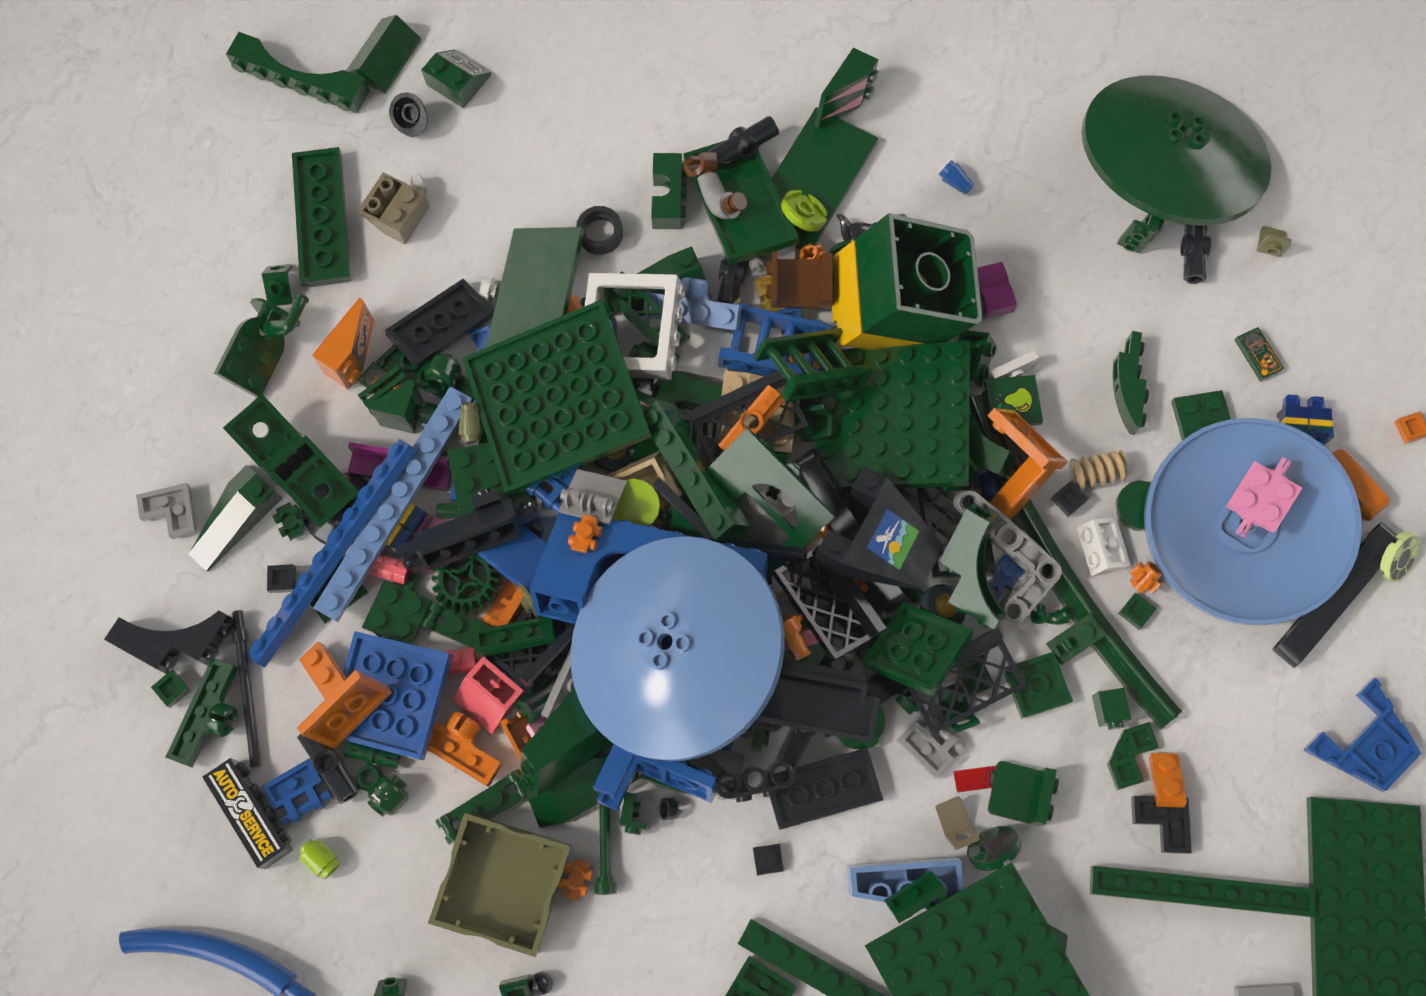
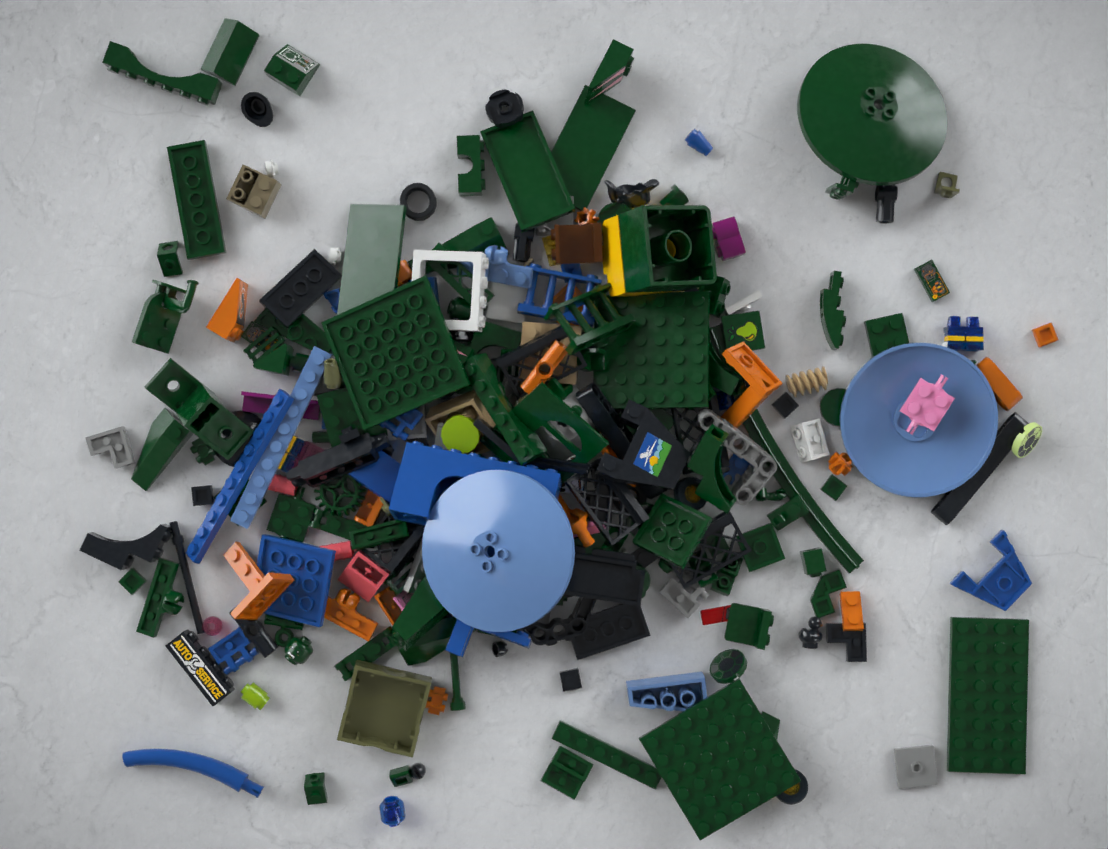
camera: 10 degrees left, 15 degrees up
(279, 759) = (218, 625): none -> clear pink plate
(442, 372) = (306, 331): dark green head -> none
(584, 533) = (426, 462): orange piece -> none
(592, 496) = (429, 433): light grey hinge -> none
(631, 809) = (471, 651): dark green bracket -> none
(706, 119) = (504, 118): none -> black plate
(720, 203) = (511, 179): piece -> none
(745, 142) = (528, 123): black piece -> none
(804, 210) = (578, 181): lime tile -> none
(915, 896) = (672, 706): dark green plate -> none
(955, 823) = (701, 648): dark tan bracket -> none
(991, 723) = (726, 576): none -> dark green slope
(1111, 814) = (812, 636): none -> black animal
(1202, 891) = (873, 686): dark green plate -> none

